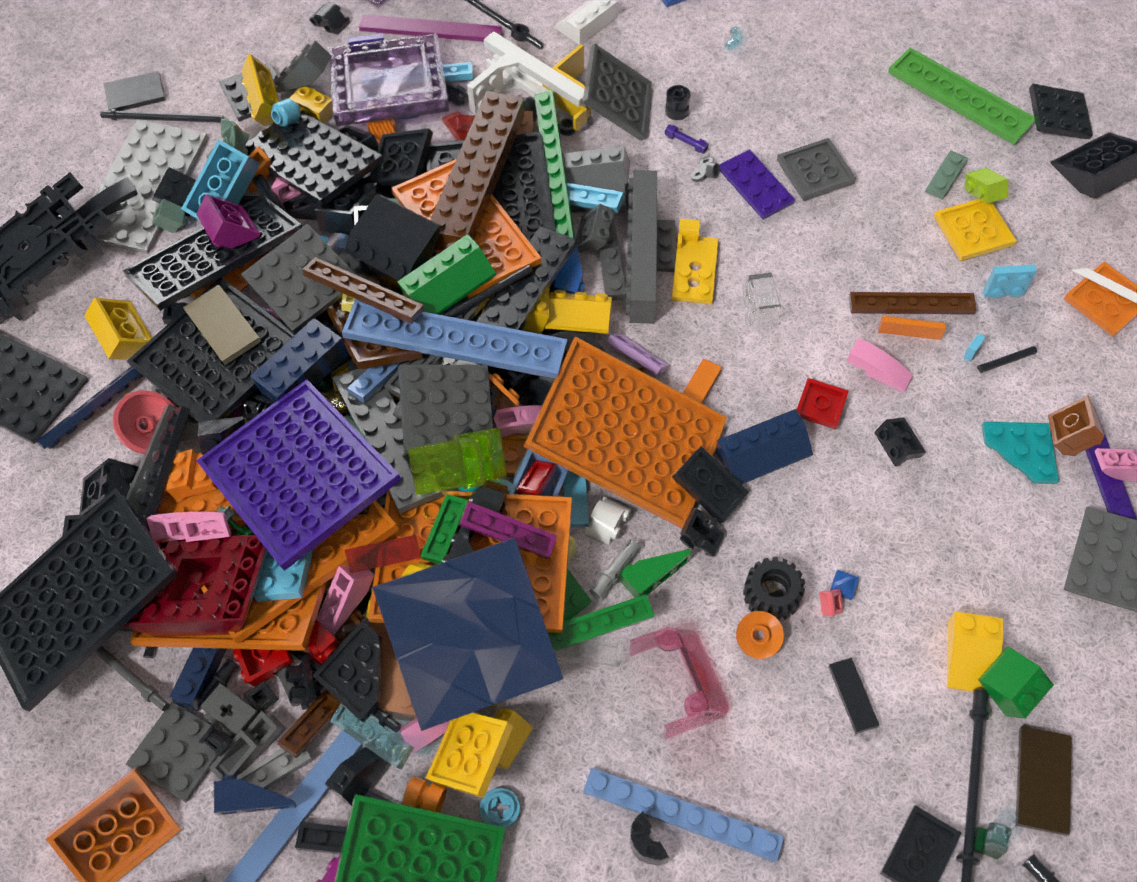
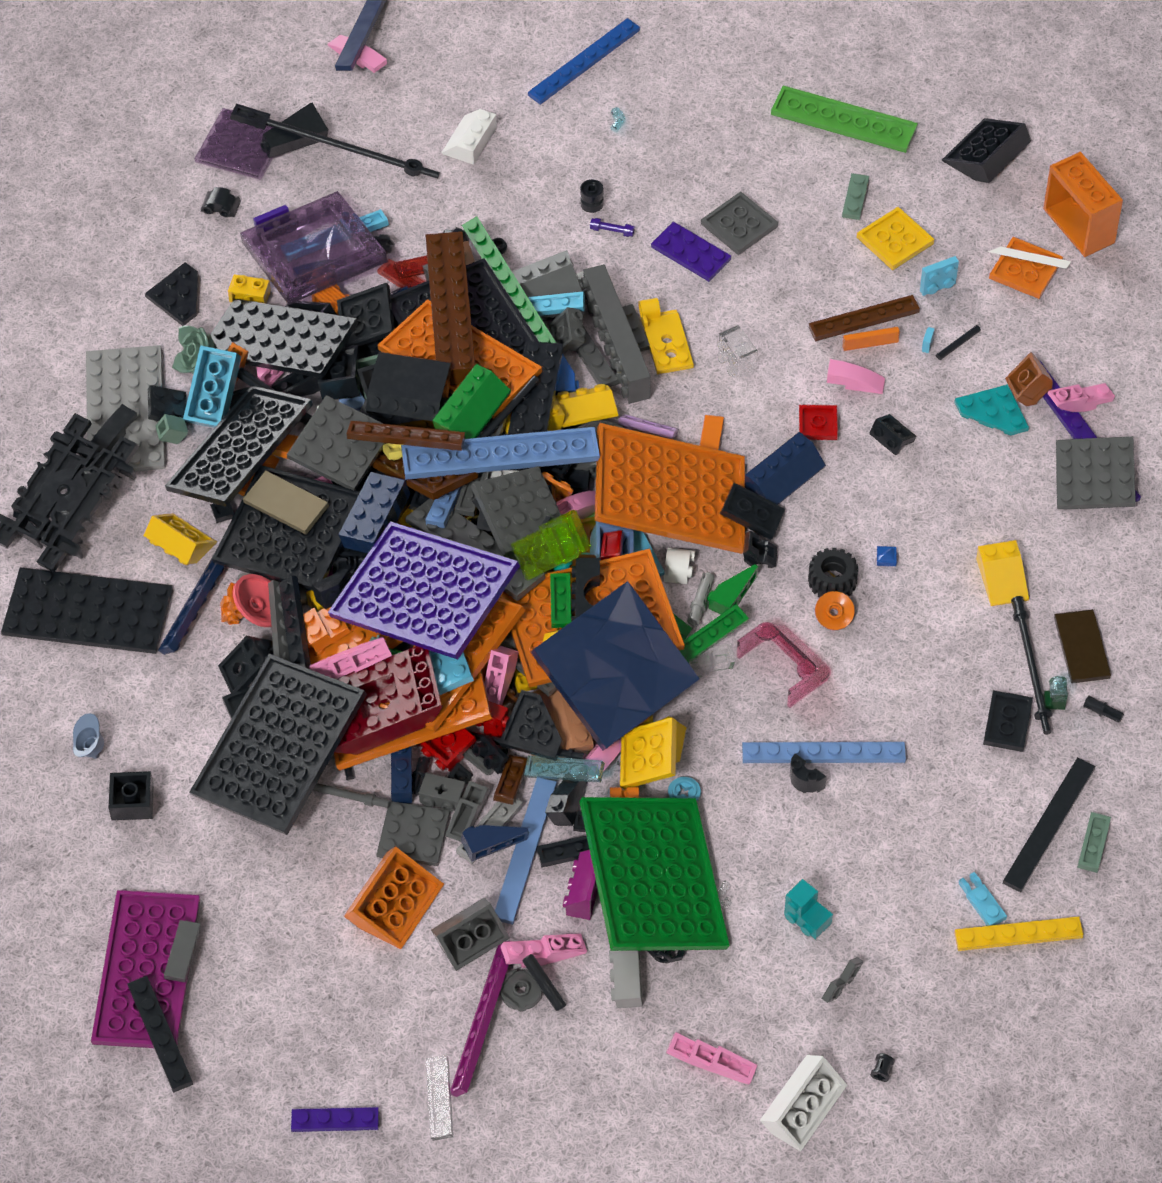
camera: 20 degrees left, 5 degrees down
(114, 115) = (105, 342): black bar -> none
(134, 91) = (66, 326): tile -> none
(215, 740) = (444, 811): black bush -> none
(226, 222) = (240, 417): magenta slope -> none
(260, 89) = (199, 292): yellow slope -> none
(285, 112) = (235, 305): medium azure head -> none
(303, 68) = (228, 260): dark grey slope -> none
(382, 554) = (521, 631): clear red tile -> none
(421, 27) = (323, 186): magenta tile -> none
(504, 528) = (608, 582): magenta plate -> none
(532, 76) = (495, 216): white piece -> none
(617, 92) = (535, 201): dark grey plate -> none
(707, 169) = (642, 250): piece -> none
(831, 602) = (880, 571): coral slope -> none
(853, 696) = (922, 632): black tile -> none
(986, 185) = (893, 197): lime brick -> none
(1015, 683) = (1039, 584): green slope -> none
(1060, 111) = (936, 111): black plate -> none

